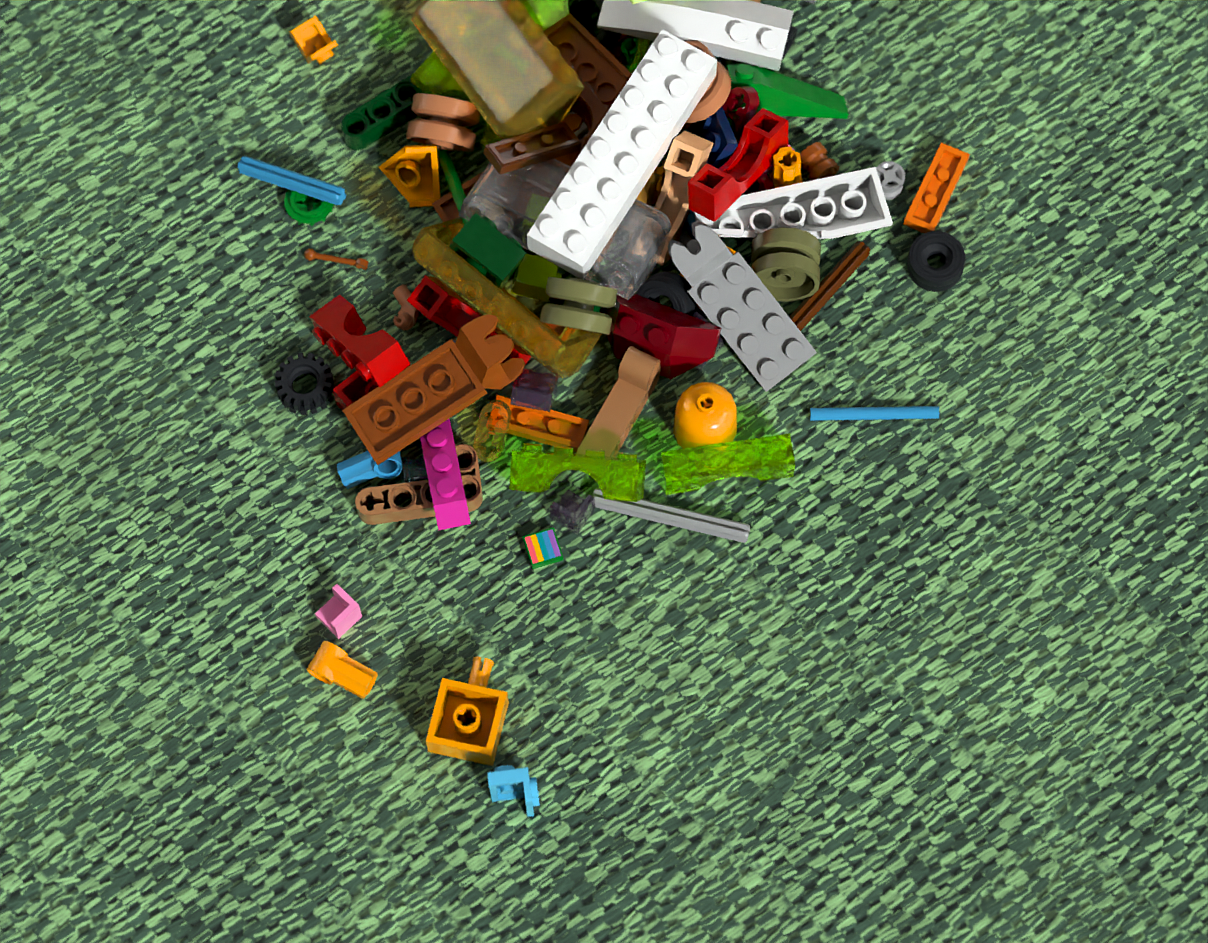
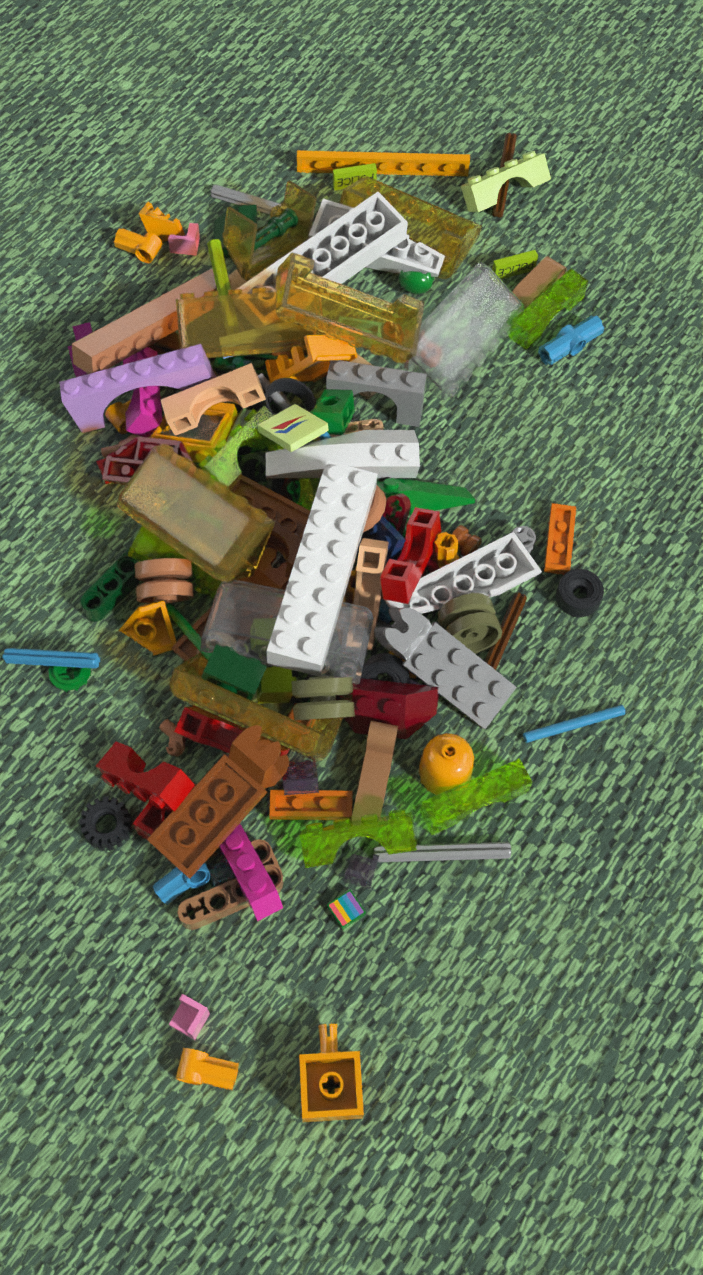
camera: 20 degrees left, 5 degrees down
(310, 254) = (82, 714): dark orange hinge -> none
(313, 41) = (40, 544): light orange bracket -> none
(499, 432) = (281, 821): clear yellow beam -> none
(513, 783) = (384, 1134): medium azure bracket -> none
(532, 148) = (245, 581): reddish brown tile -> none

